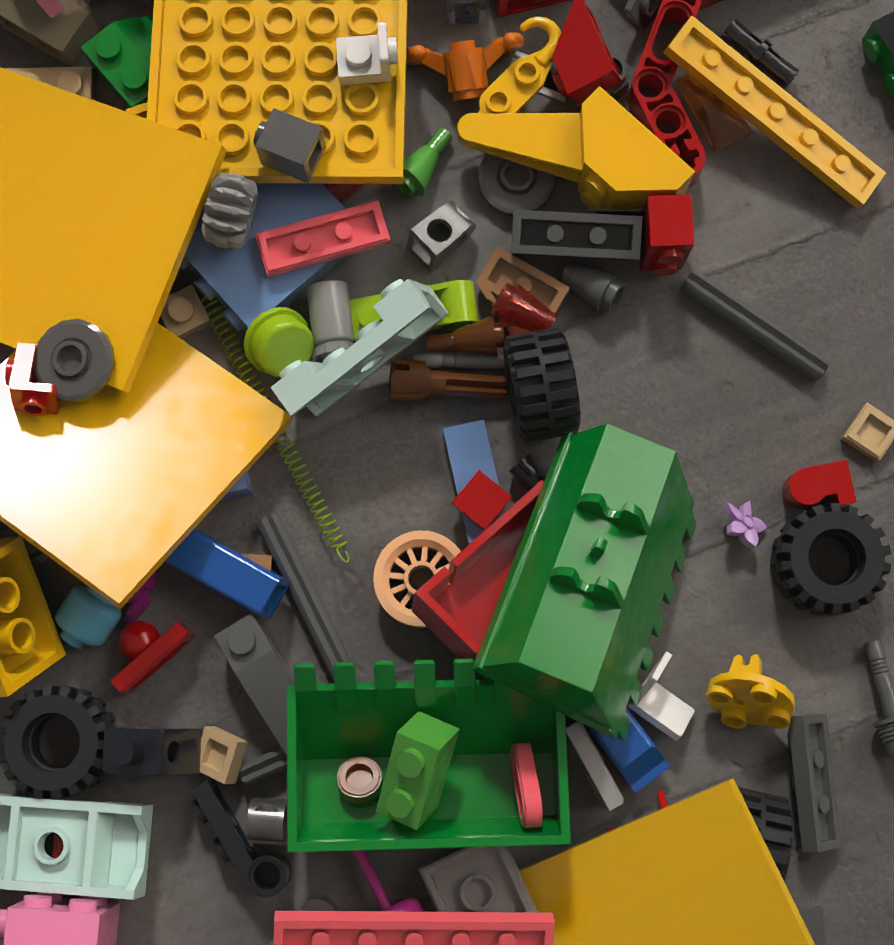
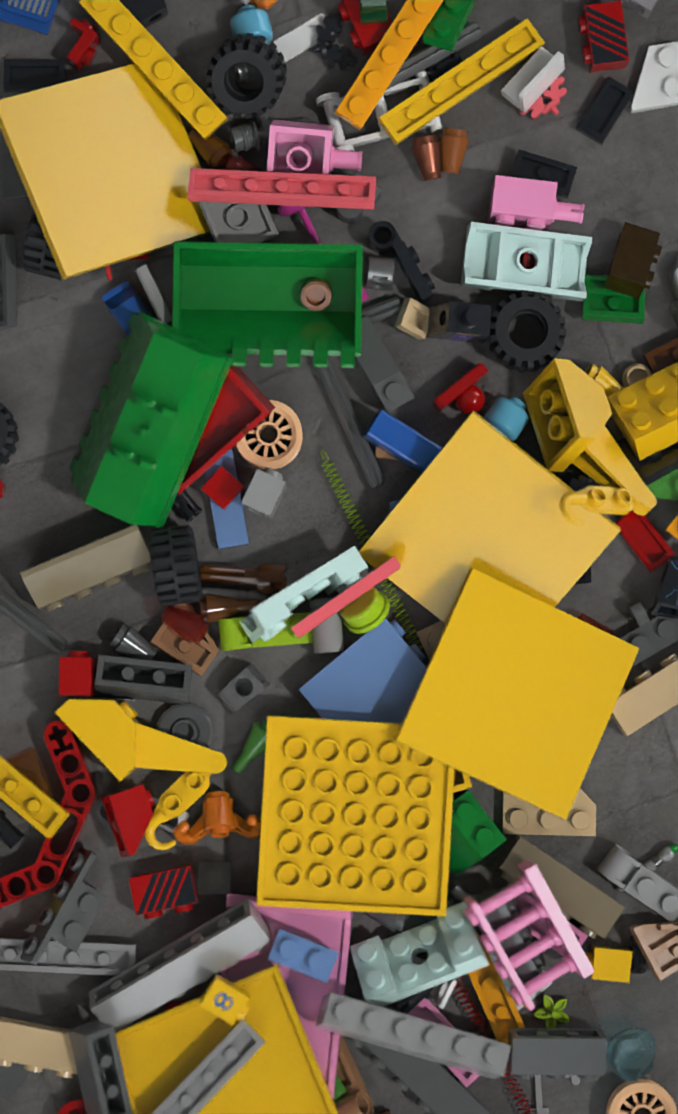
camera: 175 degrees right, 5 degrees up
(23, 384) = (544, 581): red bracket -> none
(74, 359) = (507, 591): dark grey wheel -> none
(229, 210) = (393, 696): light grey gear -> none
(289, 145) = (348, 739): dark grey brick -> none
(302, 347) = (346, 597): none -> coral tile
(322, 239) = (329, 681): coral tile -> none
(366, 57) = (290, 808): white bracket -> none
(417, 770) = (274, 296): bright green brick -> none
(421, 490) = (264, 493): none -> light grey brick
(526, 785) = (201, 284): coral tile -> none
(660, 705) = (104, 339): white bracket -> none
(665, 379) = (88, 568): none -> dark tan slope
(744, 524) = (35, 464): lavender plant -> none
(749, 697) = (45, 341): yellow plate -> none

